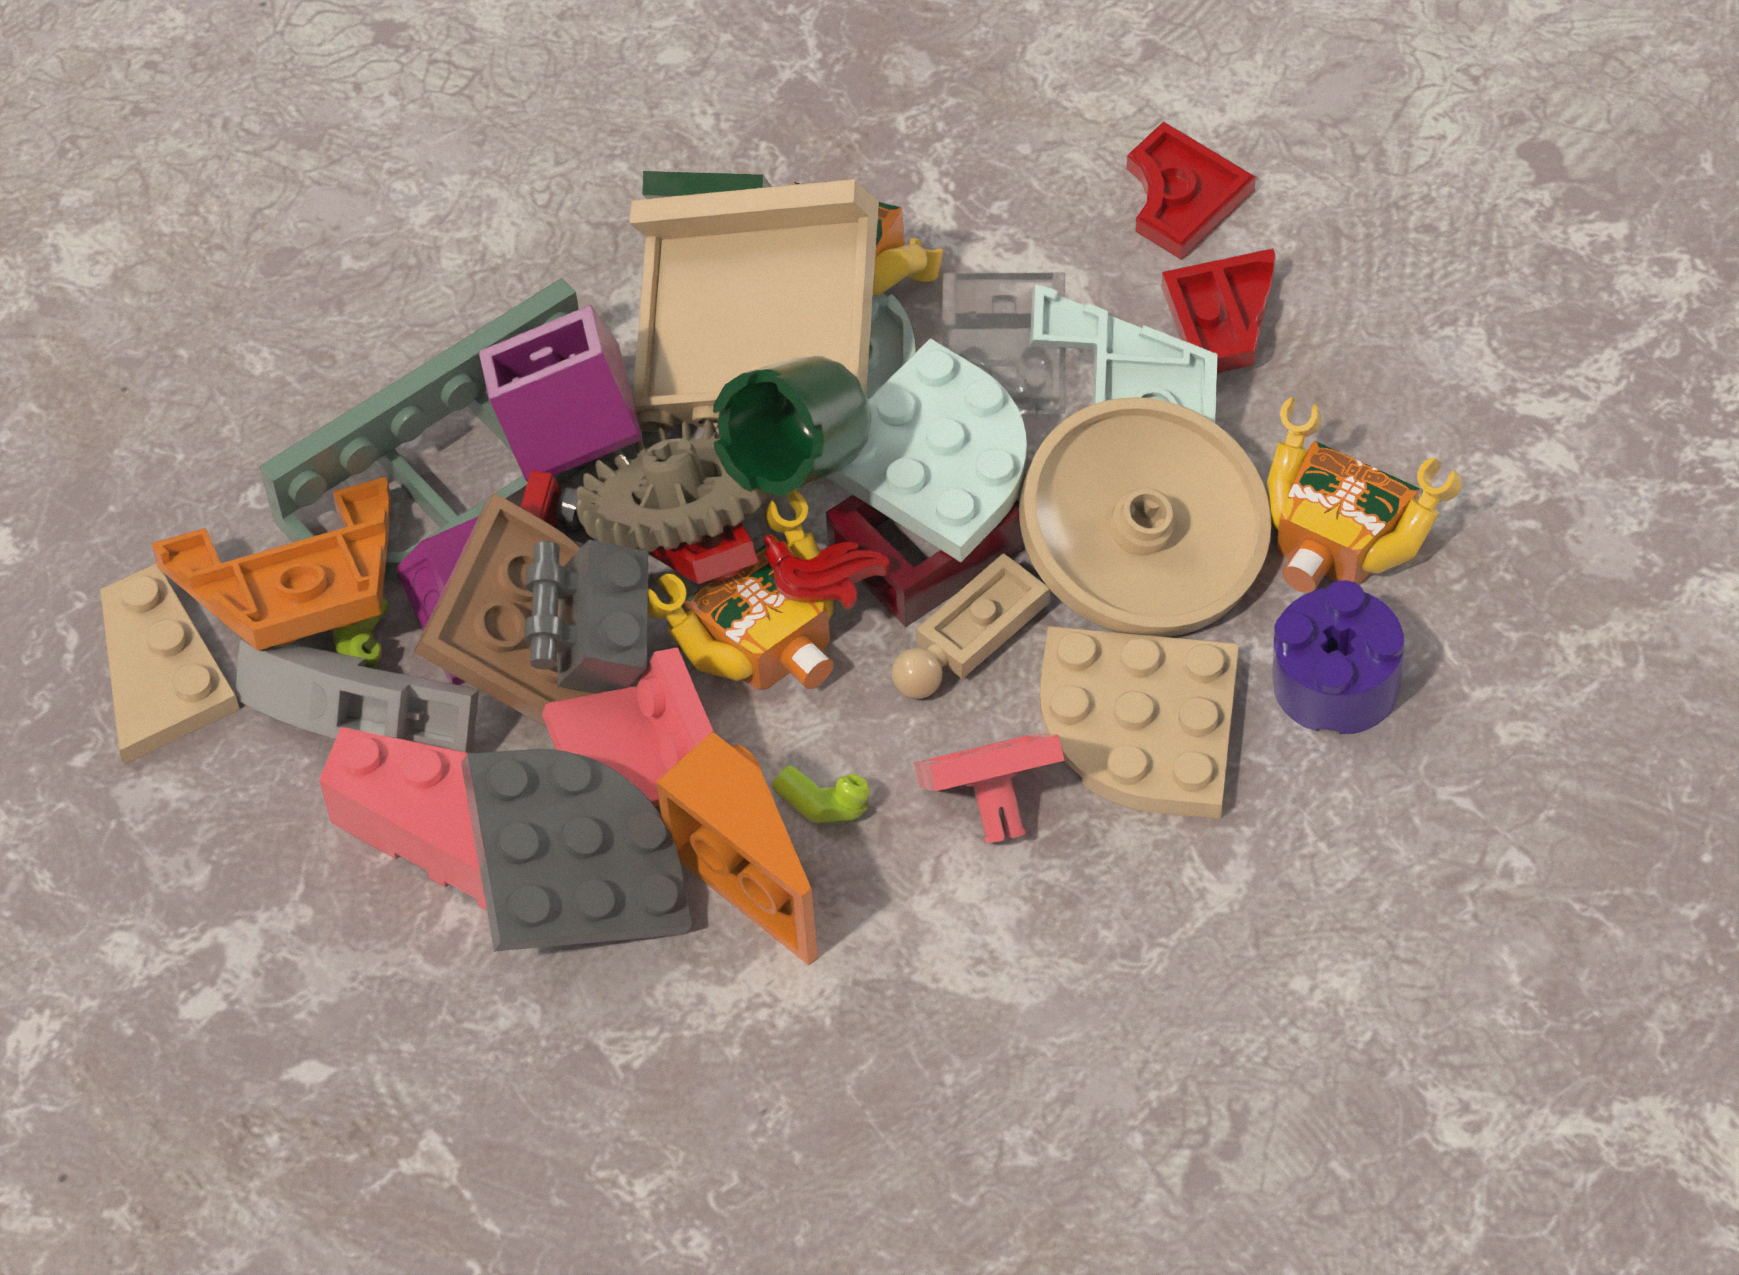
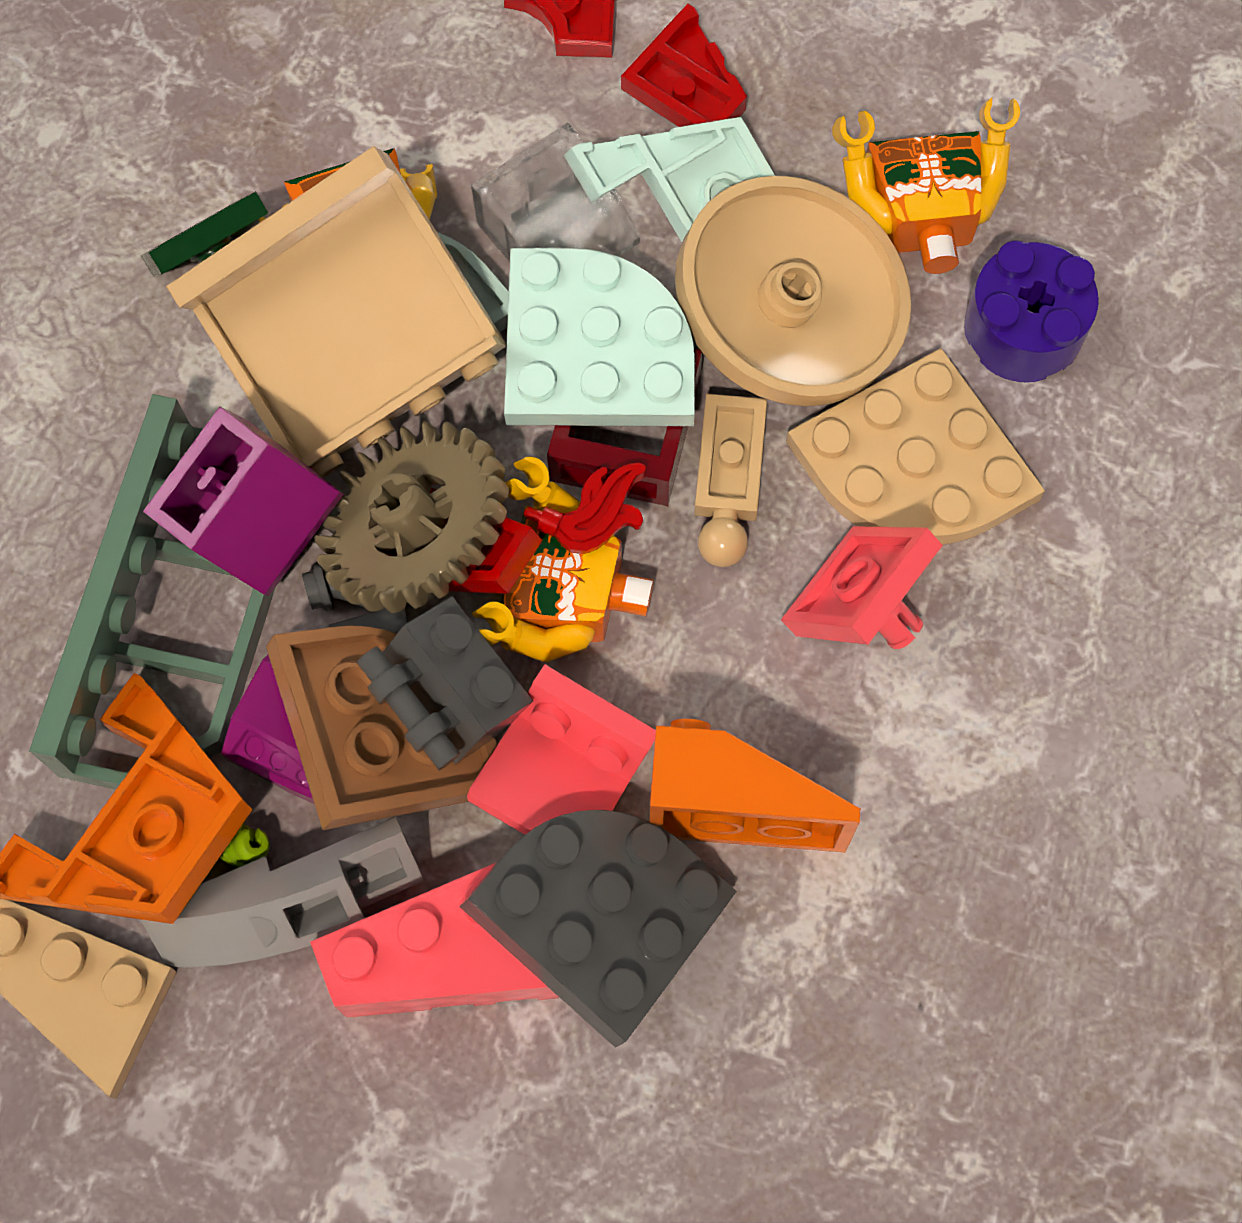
camera: 40 degrees left, 15 degrees up
(542, 497) = (293, 605): red tile -> none
(791, 424) = (499, 405): dark green cylinder -> none
(823, 804) = (744, 704): lime arm -> none

